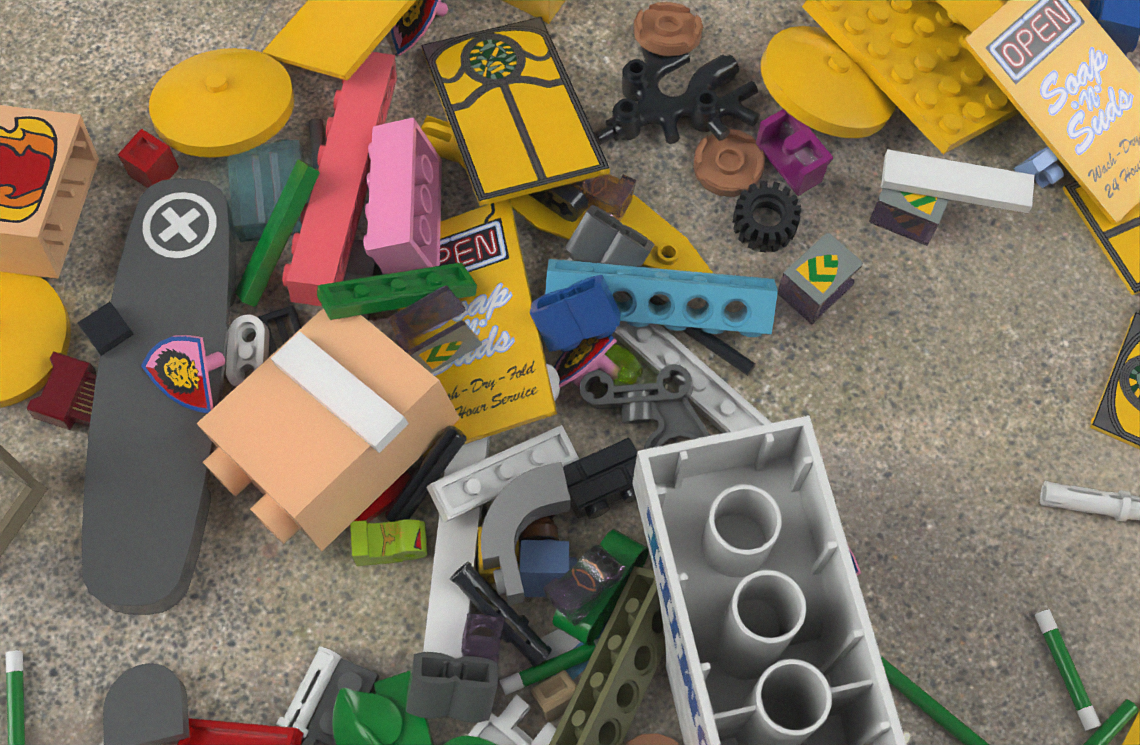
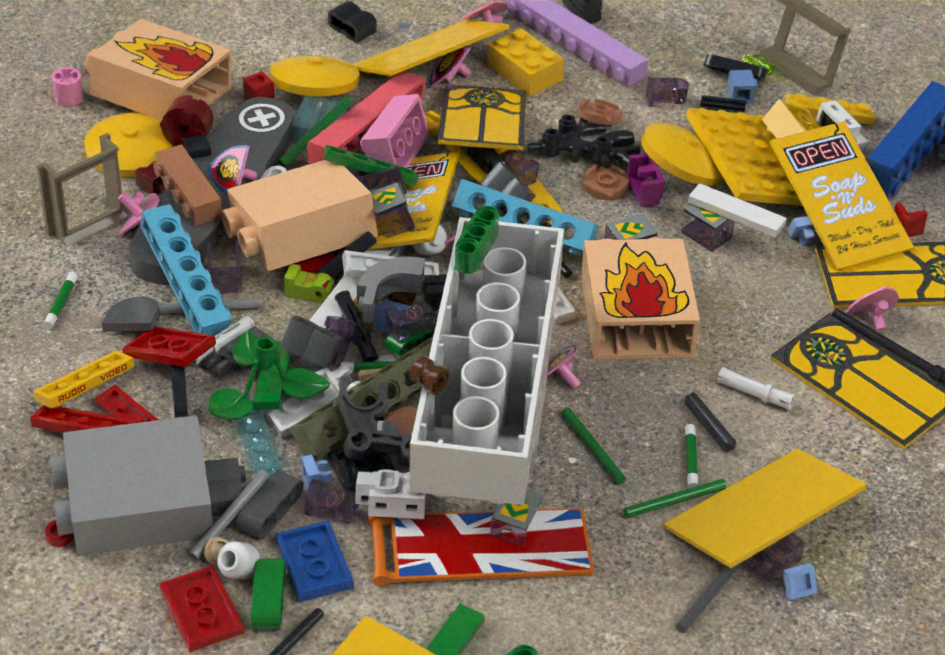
camera: 20 degrees right, 25 degrees down
(68, 282) = (186, 119): none -> dark red brick
(68, 487) = (136, 207): none -> bright pink shield
(111, 545) = (184, 270): none -> medium azure brick
(127, 424) = (187, 185): none -> nougat brick
(245, 592) = (232, 272): none -> piece
(253, 637) = (230, 304): none -> light grey bar
(340, 391) = (313, 186): white tile -> none
(468, 375) = (391, 211): none -> piece
(576, 314) = (466, 201): blue brick -> none
(703, 489) = (476, 239): none -> green beam
(768, 198) = (624, 206): black tyre -> none
(884, 396) = (639, 299): none -> light nougat brick
(1066, 592) = (710, 422): none -> black axle

